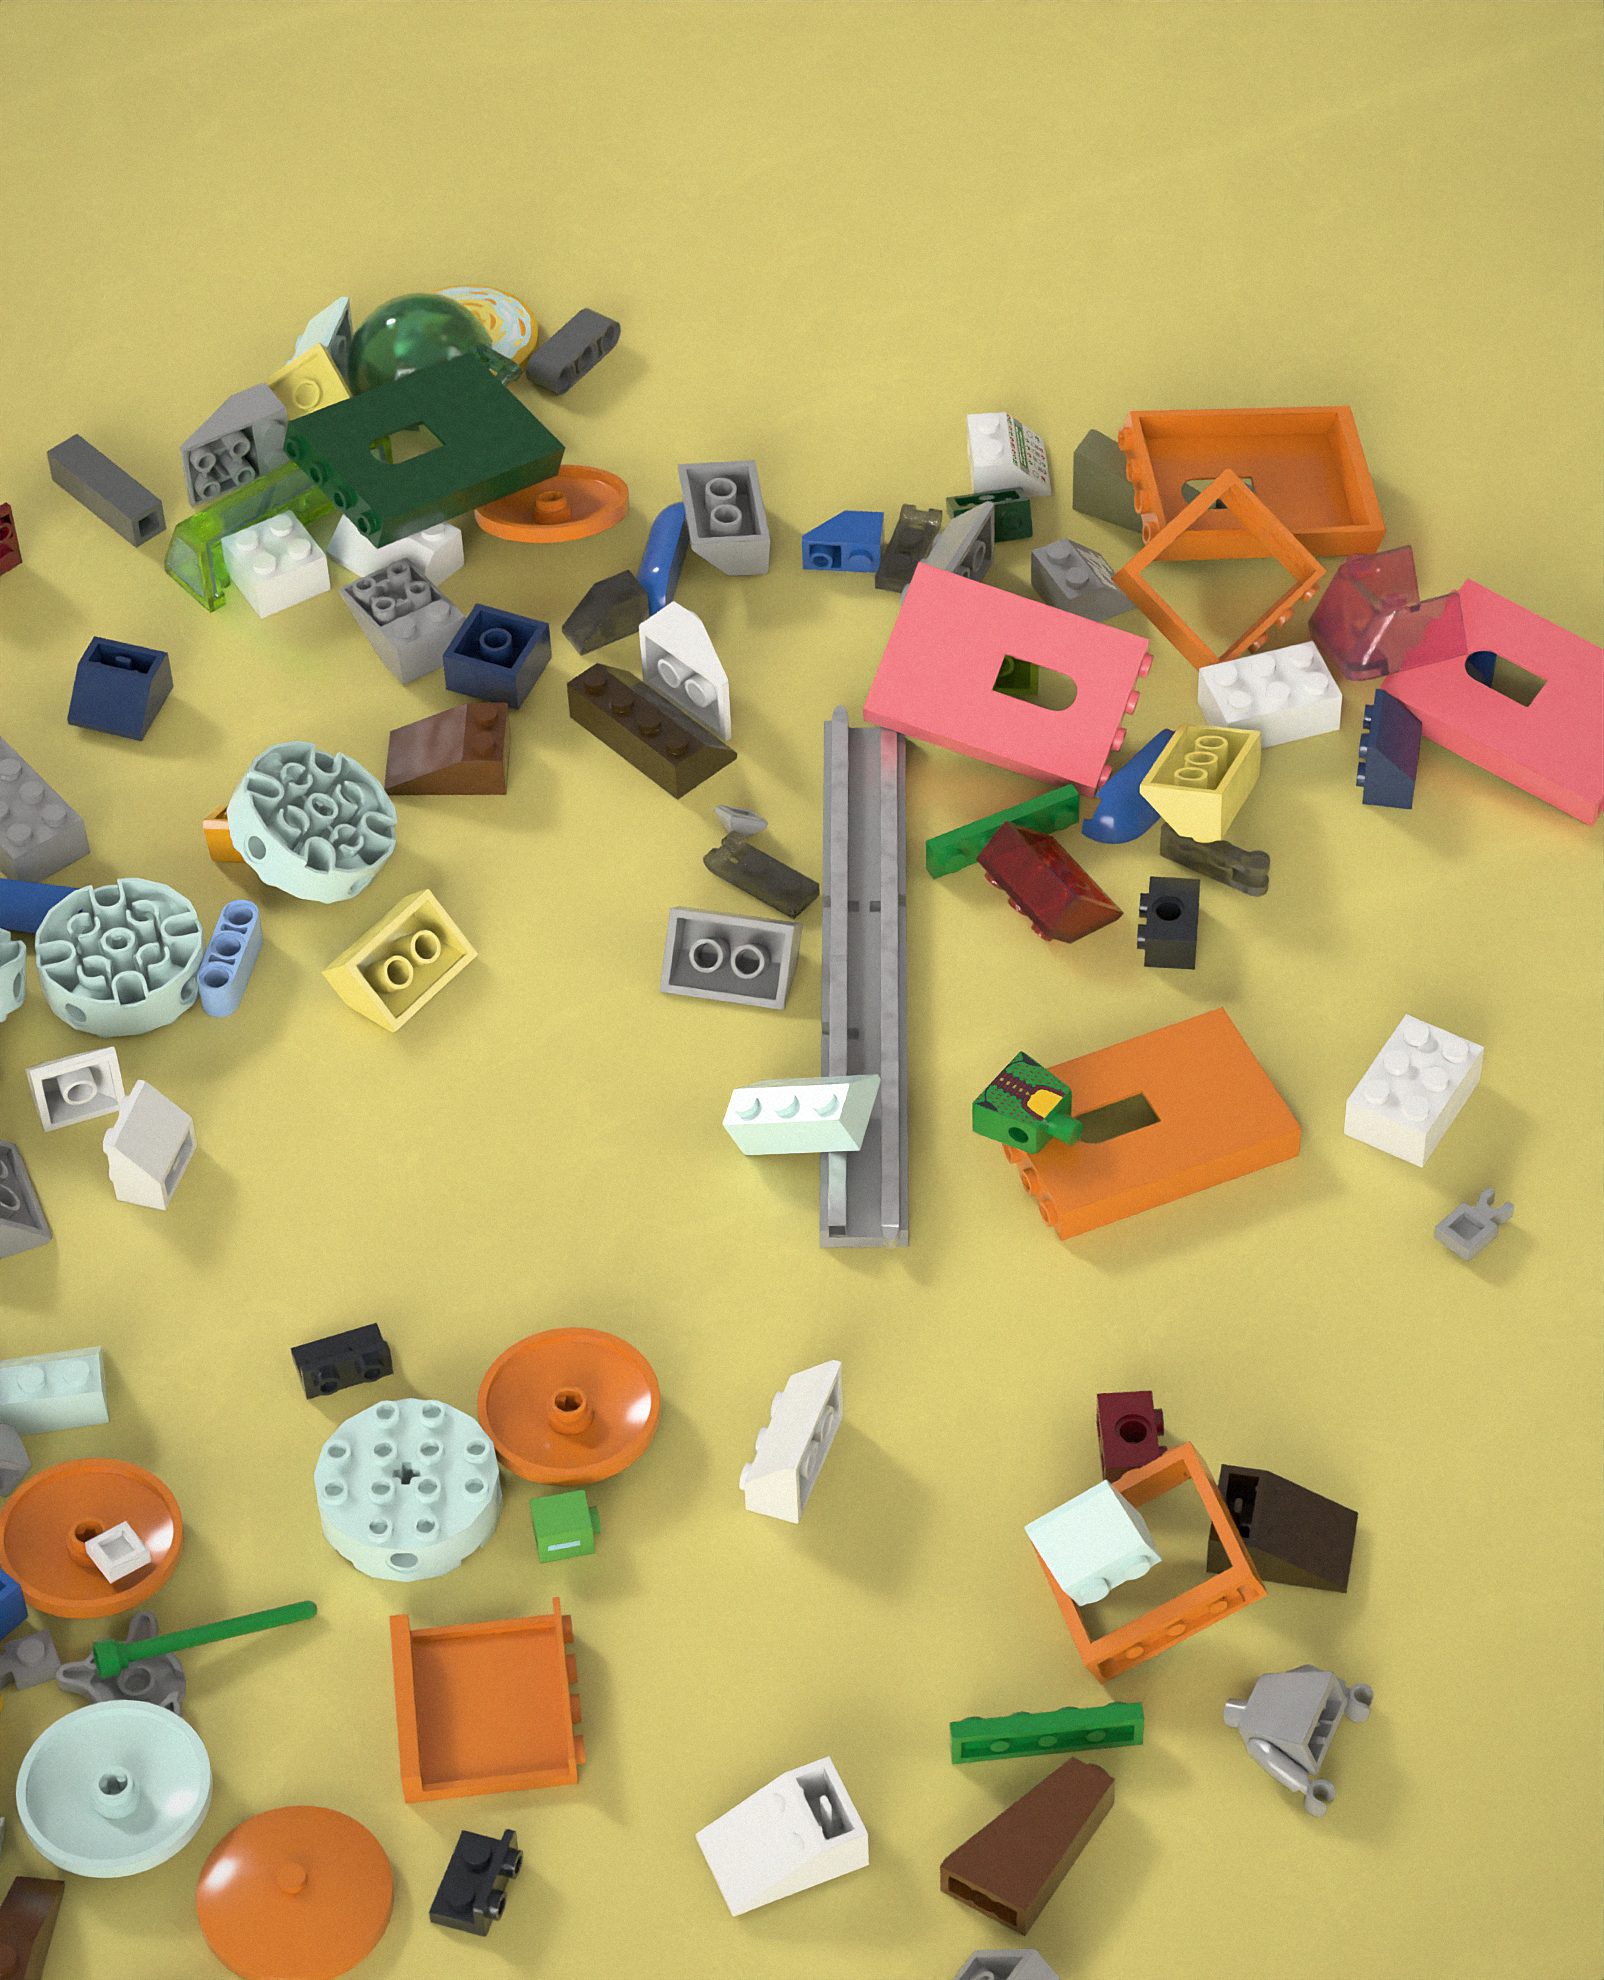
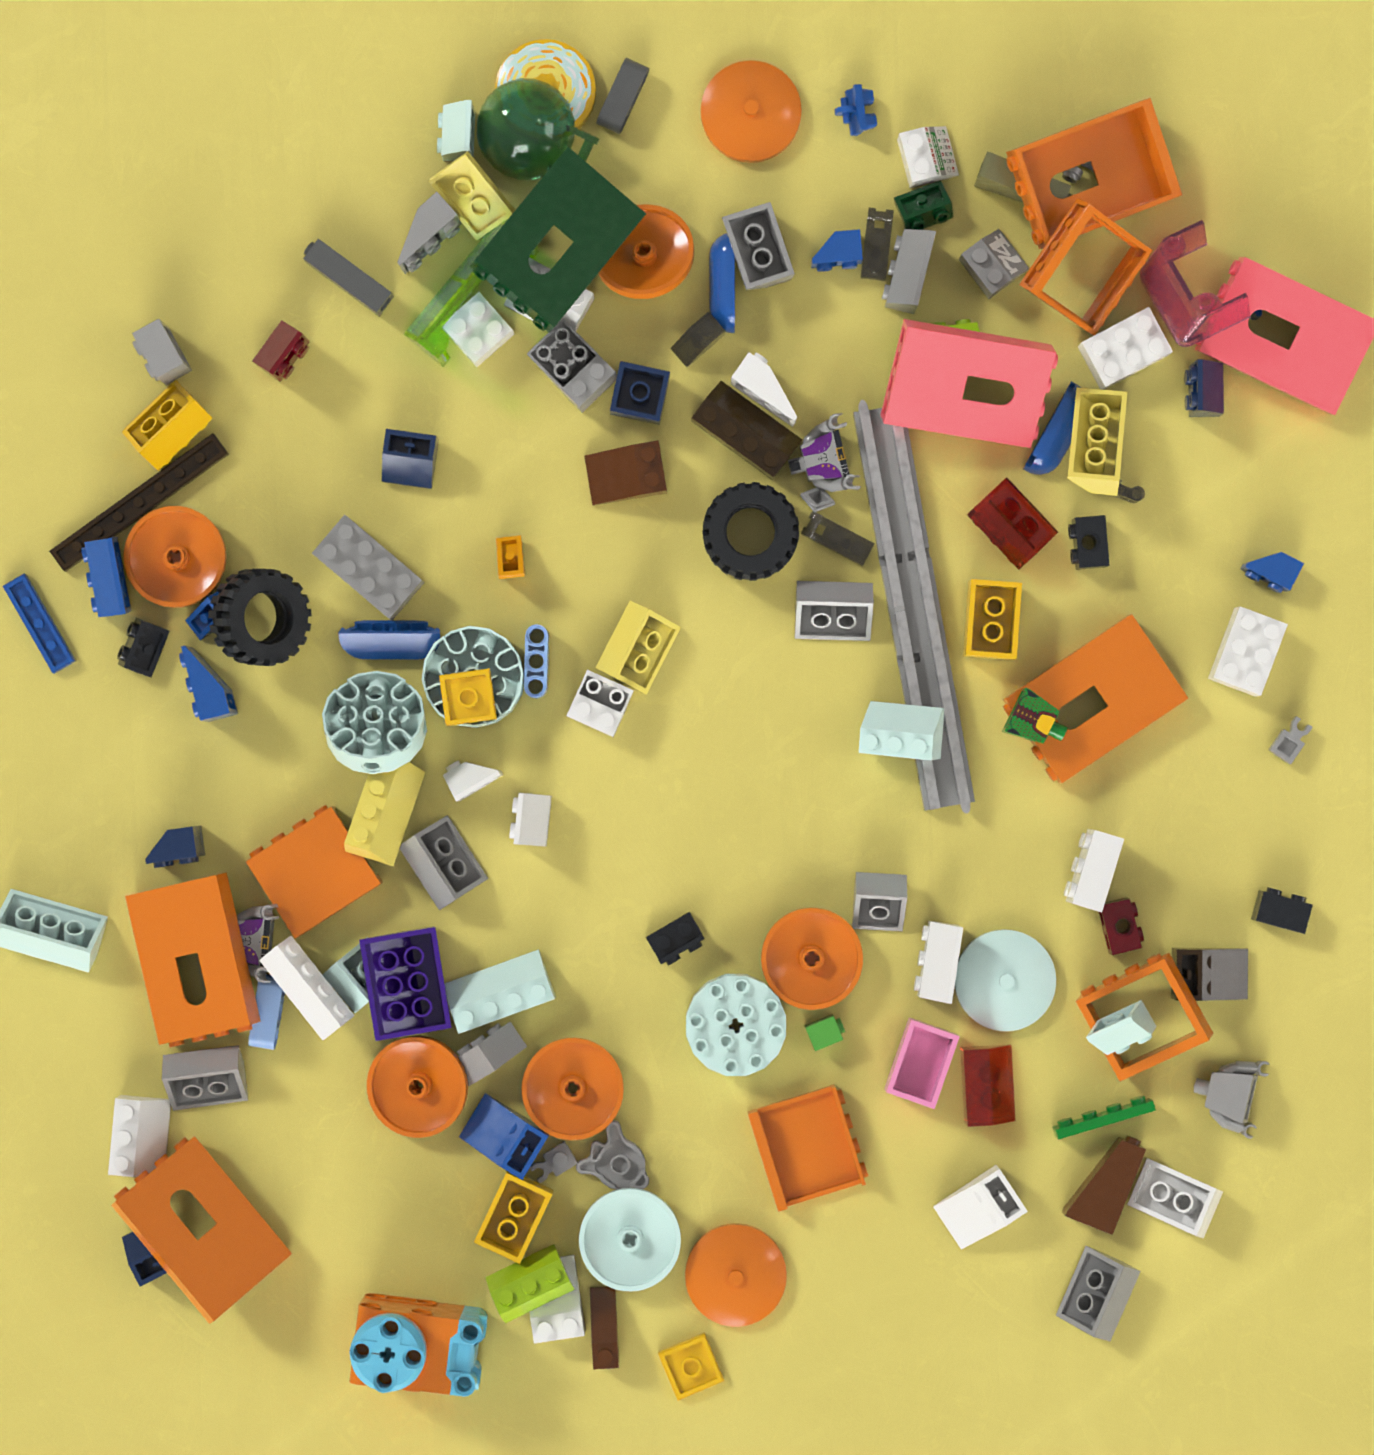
camera: 10 degrees left, 40 degrees up
(101, 959) = (468, 697): none -> yellow tile
(114, 1656) = (607, 1159): green piece -> none
(118, 1552) = (593, 1102): white tile -> none
(312, 822) = (565, 566): light aqua brick -> none
(313, 1020) = (600, 703): none -> white slope
(476, 1882) = (826, 1252): black bracket -> none
(629, 870) = (758, 497): none -> black tyre
(709, 1351) = (879, 901): none -> light grey slope
(725, 1587) = (921, 1063): none -> bright pink piece
(756, 392) = (751, 111): none -> orange dish
(764, 764) = (824, 458): none -> light grey torso
(840, 1650) = (987, 1085): none -> clear red slope
(908, 1504) = (1005, 980): none -> light aqua dish
(914, 400) = (853, 110): none -> blue hips
(962, 845) = (970, 493): green plate -> none
(988, 991) = (992, 619): none -> yellow brick
(1094, 1340) = (1093, 869): none -> white brick
(1165, 1885) = (1175, 1198): none -> white slope
(1426, 1461) = (1282, 911): none -> black brick
(1473, 992) = (1276, 570): none -> blue slope

